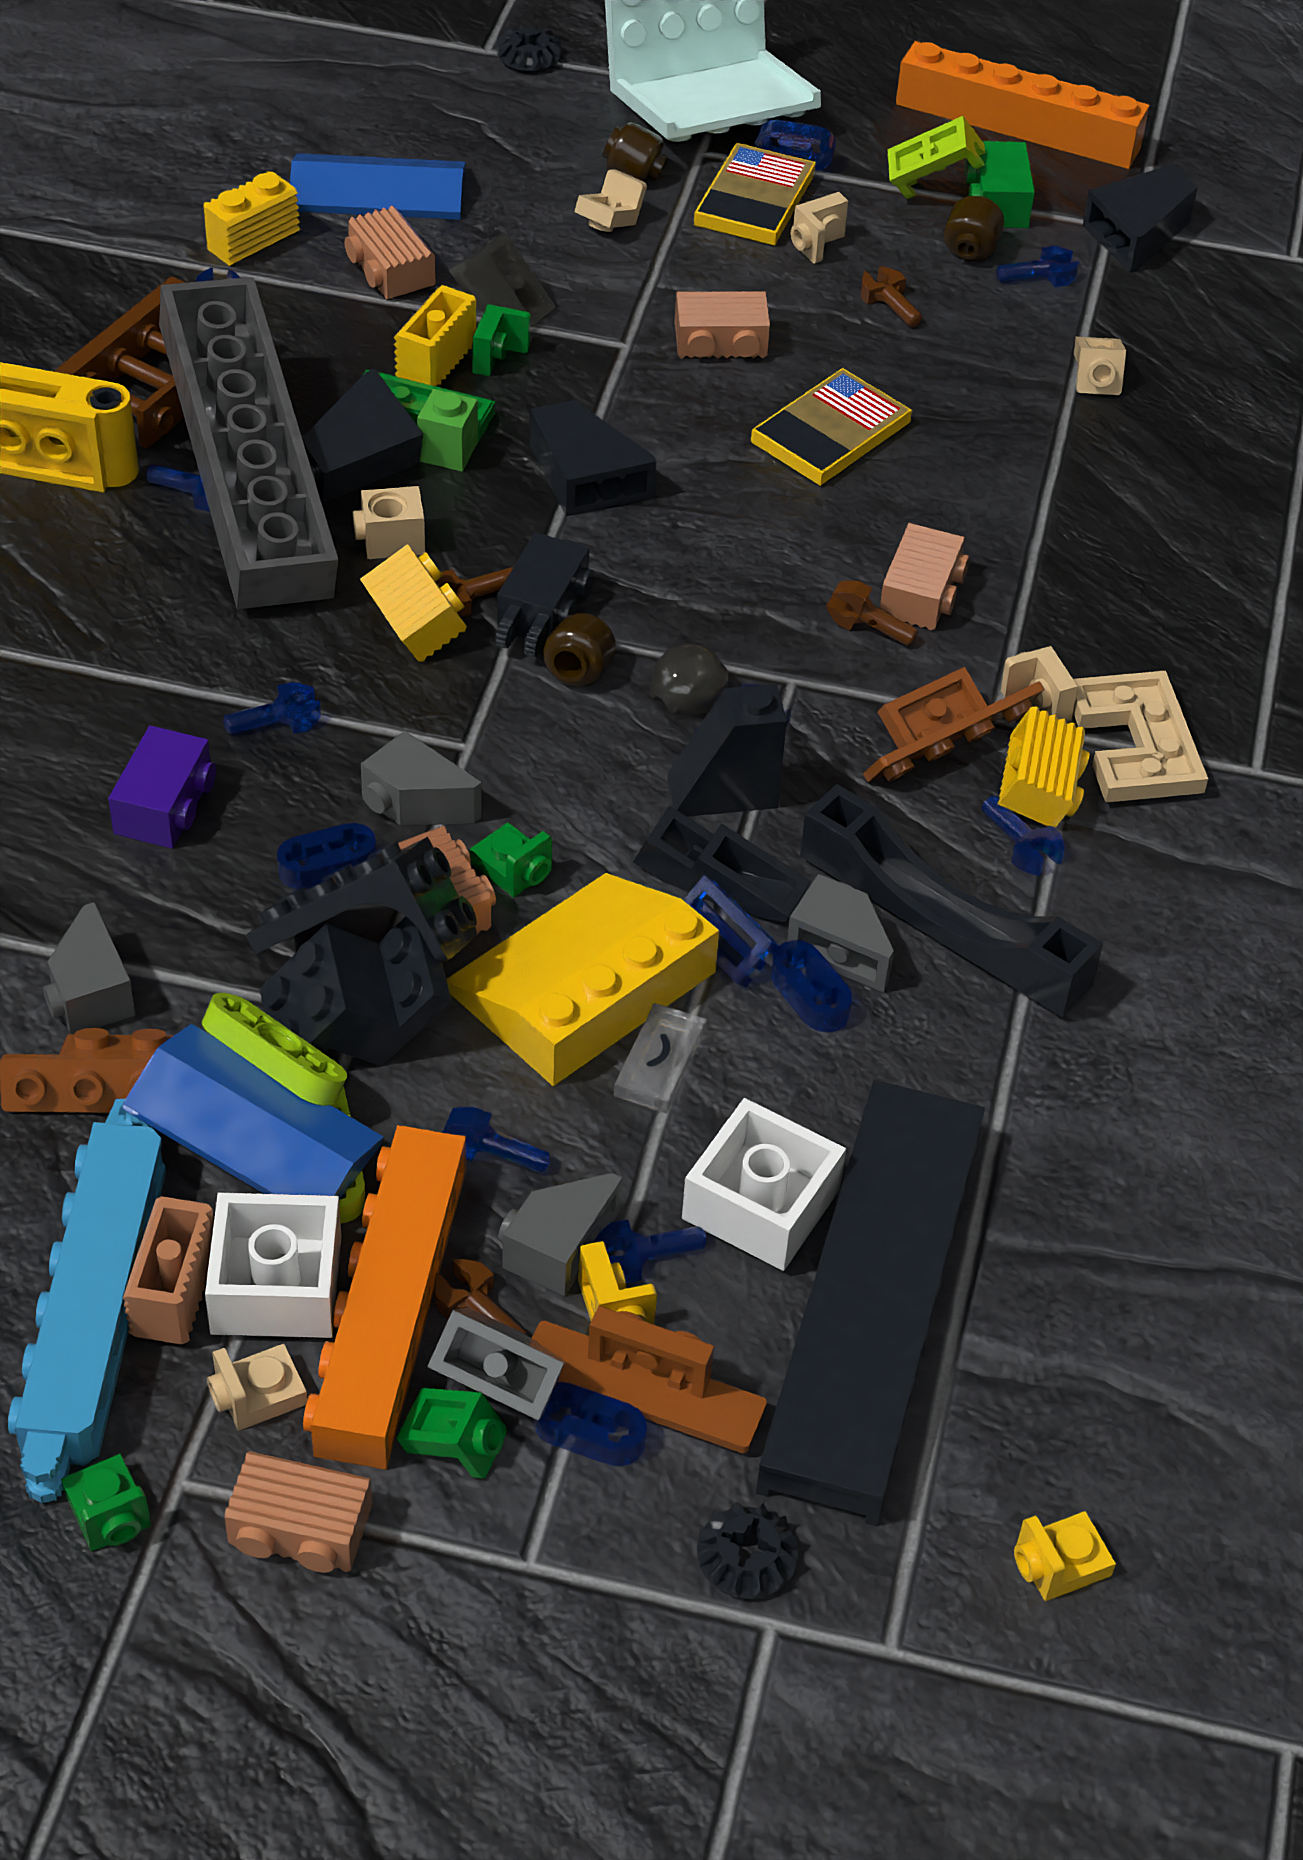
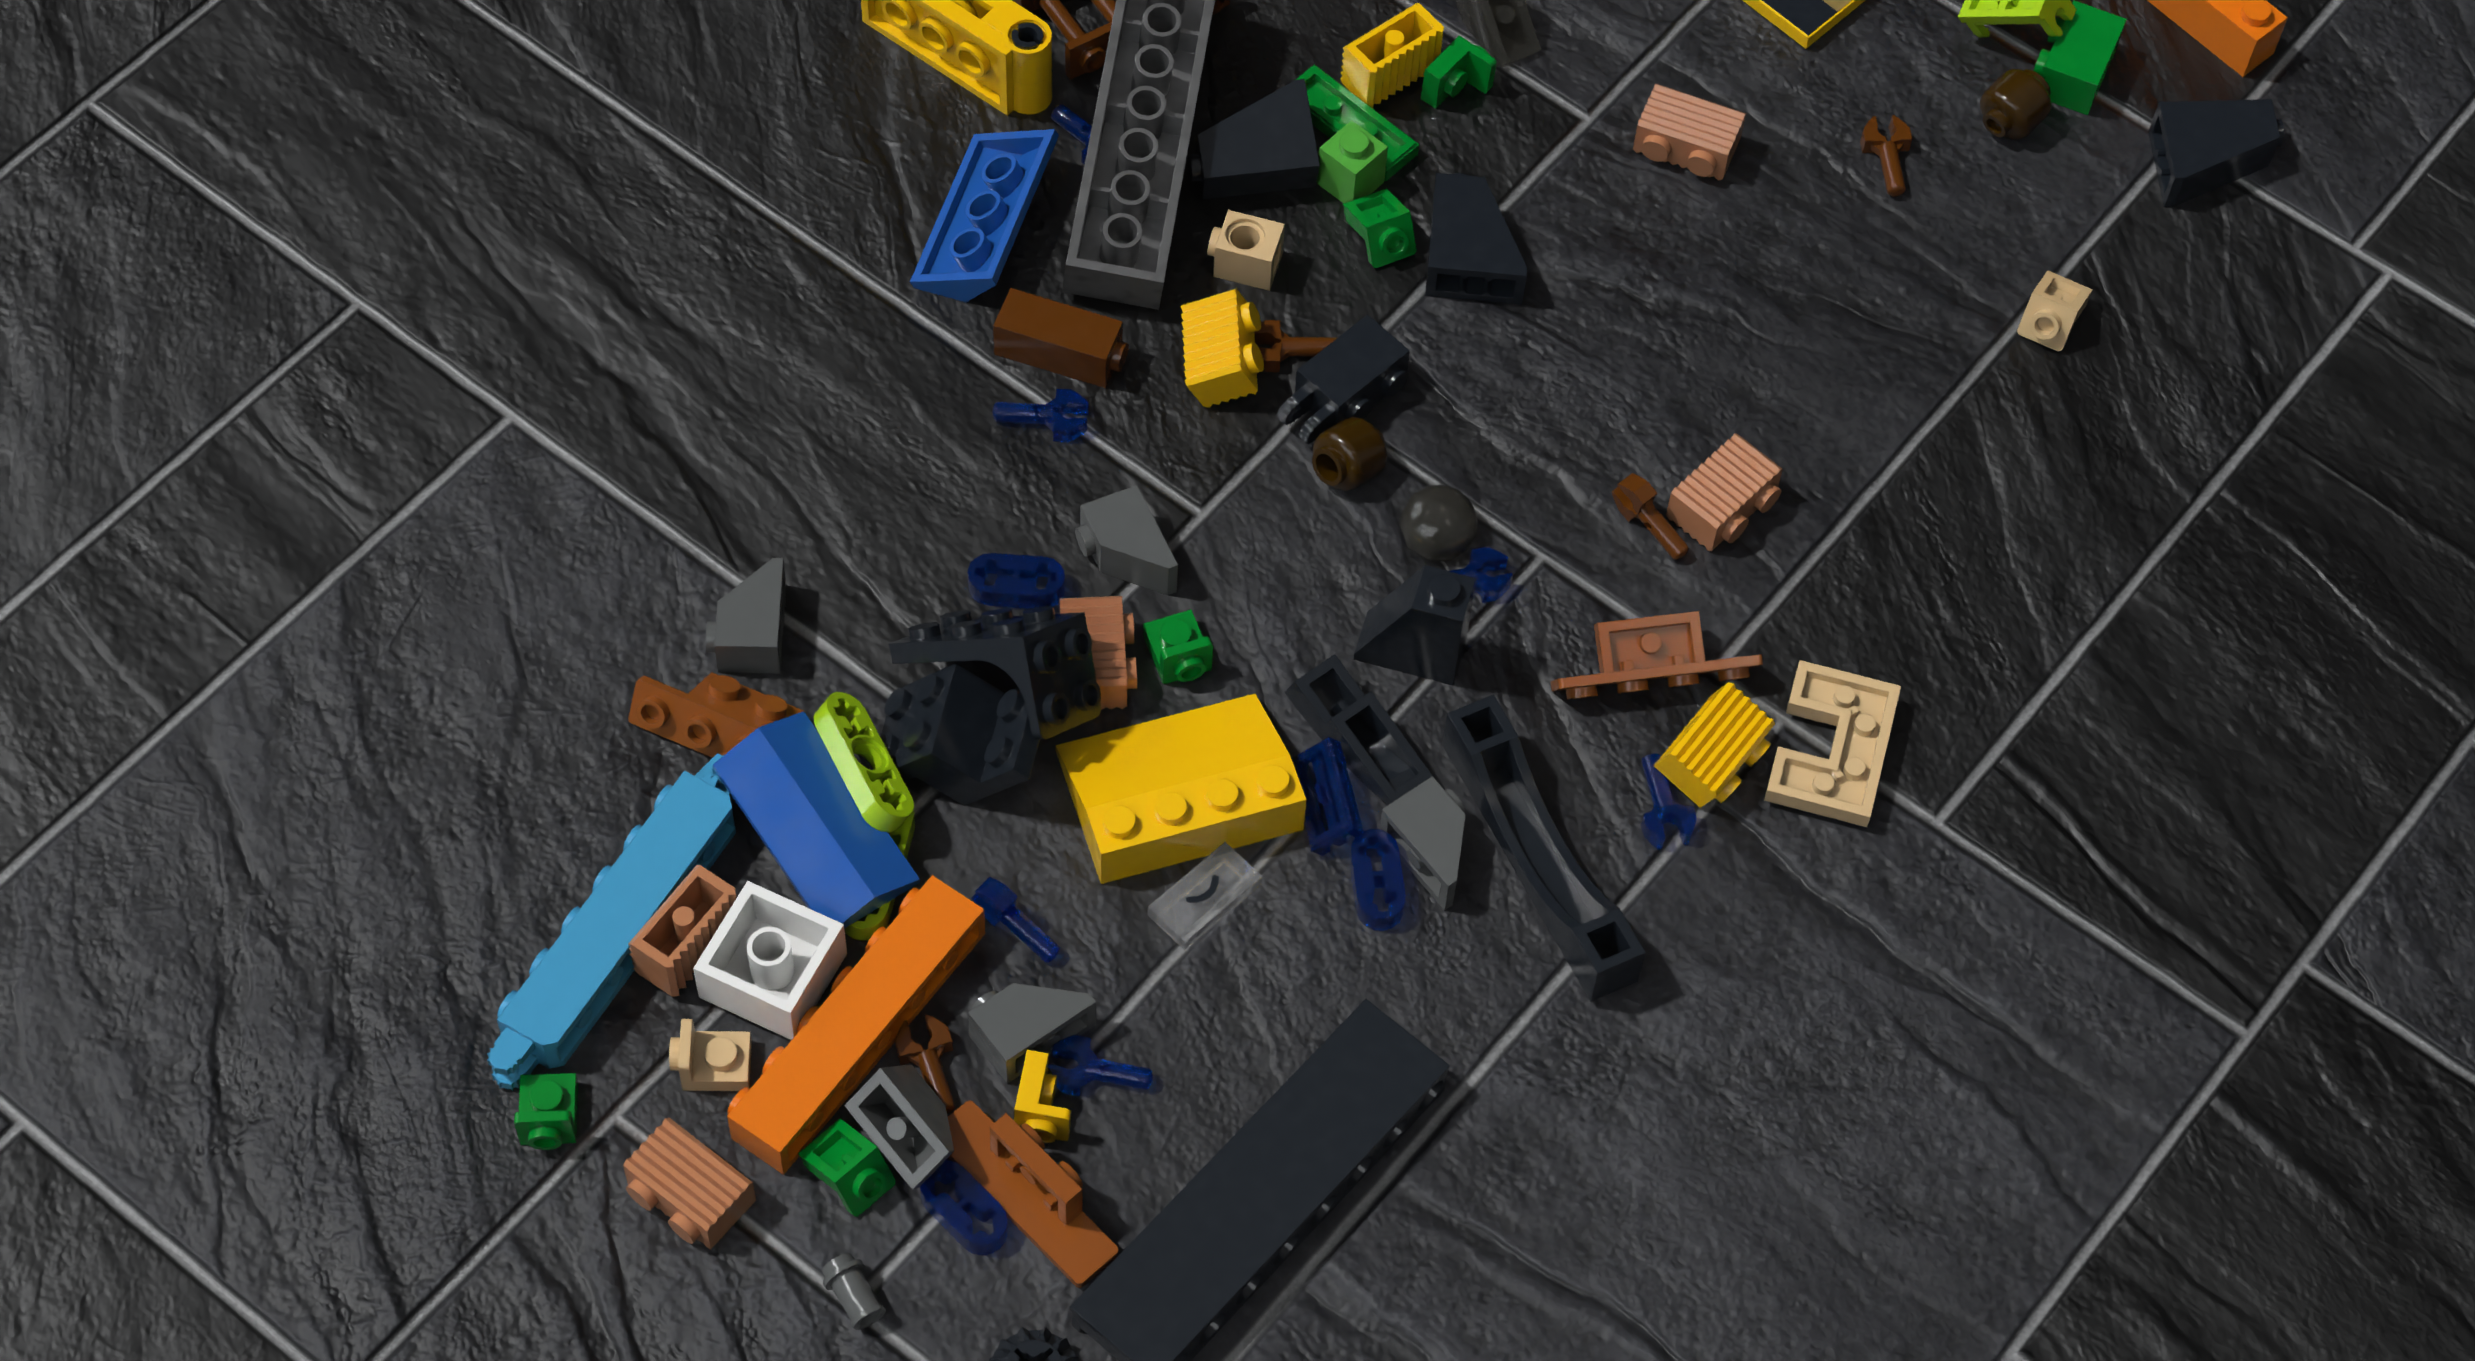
camera: 25 degrees right, 10 degrees up
(129, 569) = (983, 213): none -> blue slope
(161, 787) = (903, 457): dark purple brick -> none
(257, 643) = (1059, 338): none -> reddish brown brick
(505, 467) = (1383, 225): none -> green bracket
(523, 1546) = (853, 1290): none -> dark grey pin
(763, 1183) = (1217, 1055): white brick -> none
(819, 223) = (1856, 42): tan bracket -> none
(831, 426) = (1738, 287): tile -> none
(1047, 668) = (1776, 643): tan bracket -> none
(1053, 264) = (2072, 172): clear blue bar -> none

